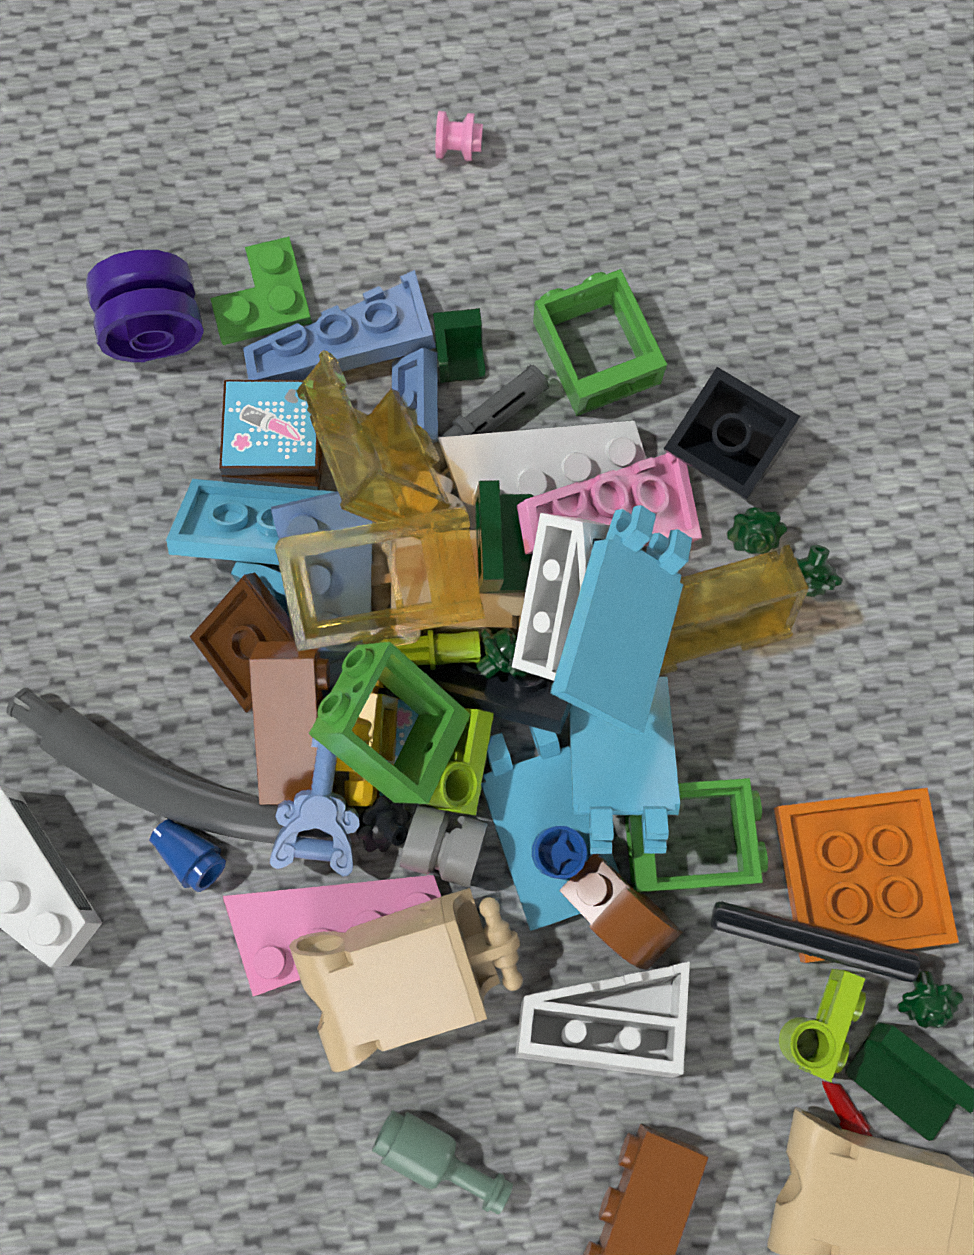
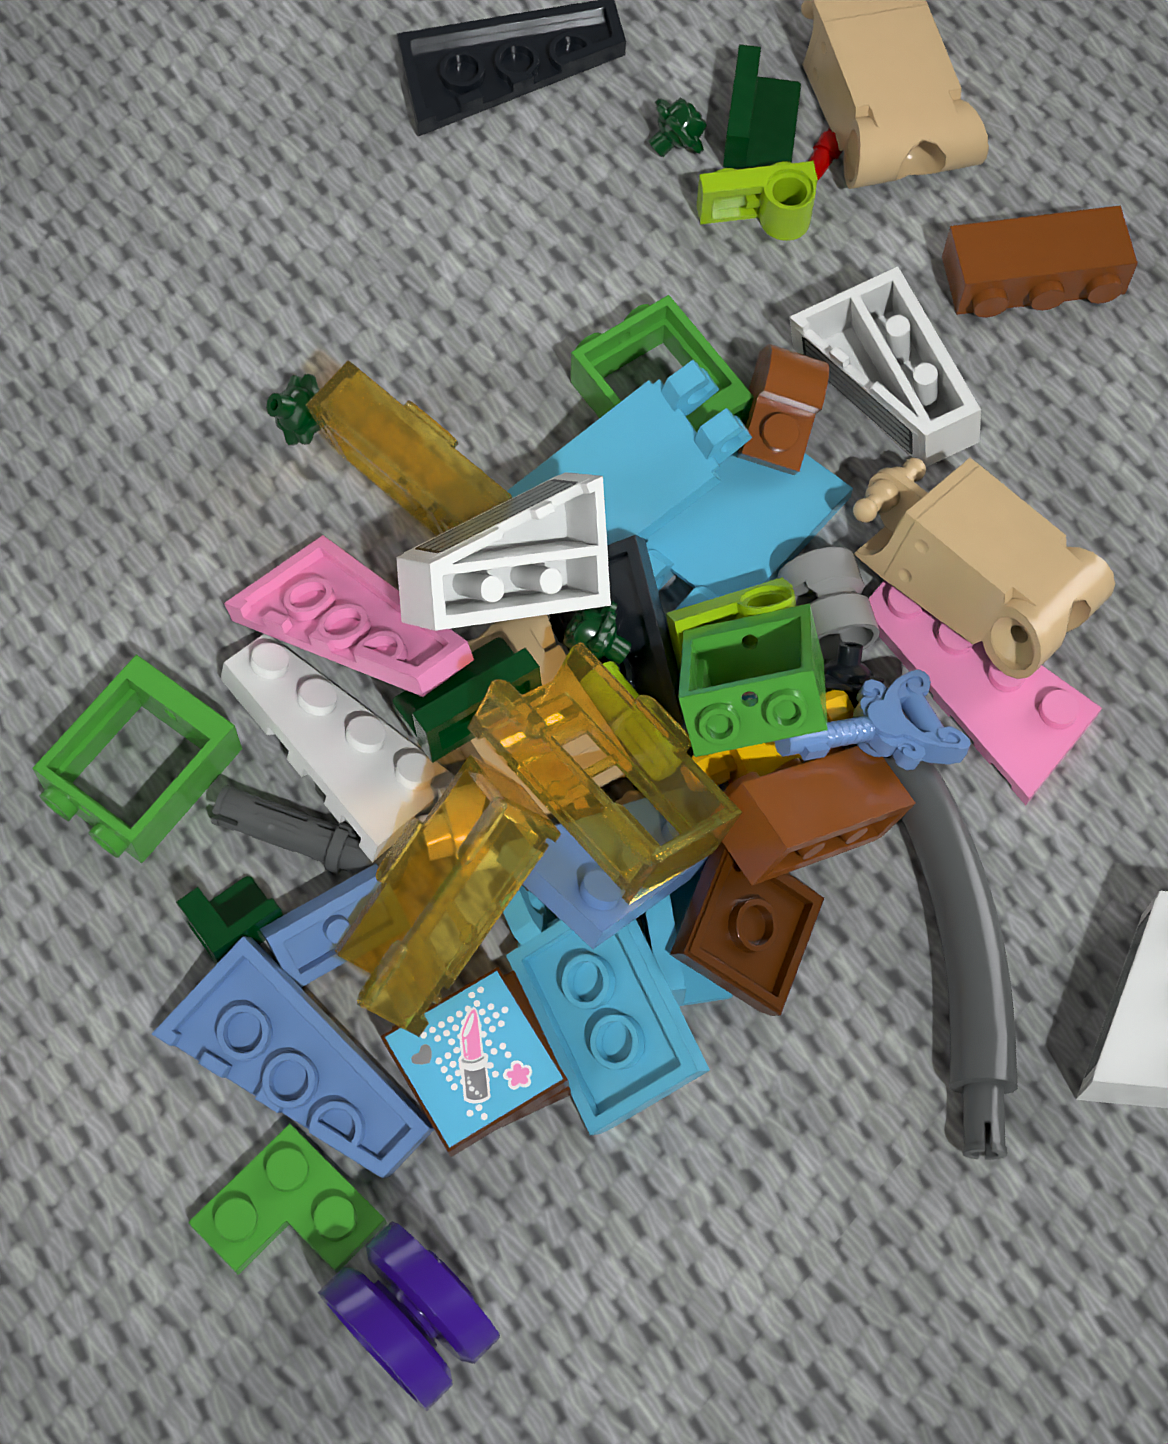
camera: 120 degrees left, 10 degrees down
(189, 856) = (1014, 858): blue cone -> none
(429, 1157) = (1121, 461): sand green piece -> none
(567, 853) = (764, 485): blue wheel -> none
(623, 621) = (504, 486): medium azure tile -> none
(733, 433) = (185, 551): black slope -> none
(756, 531) = (282, 484): dark green plant -> none
(815, 941) = (693, 233): black axle -> none
(867, 869) = (593, 230): orange plate -> none

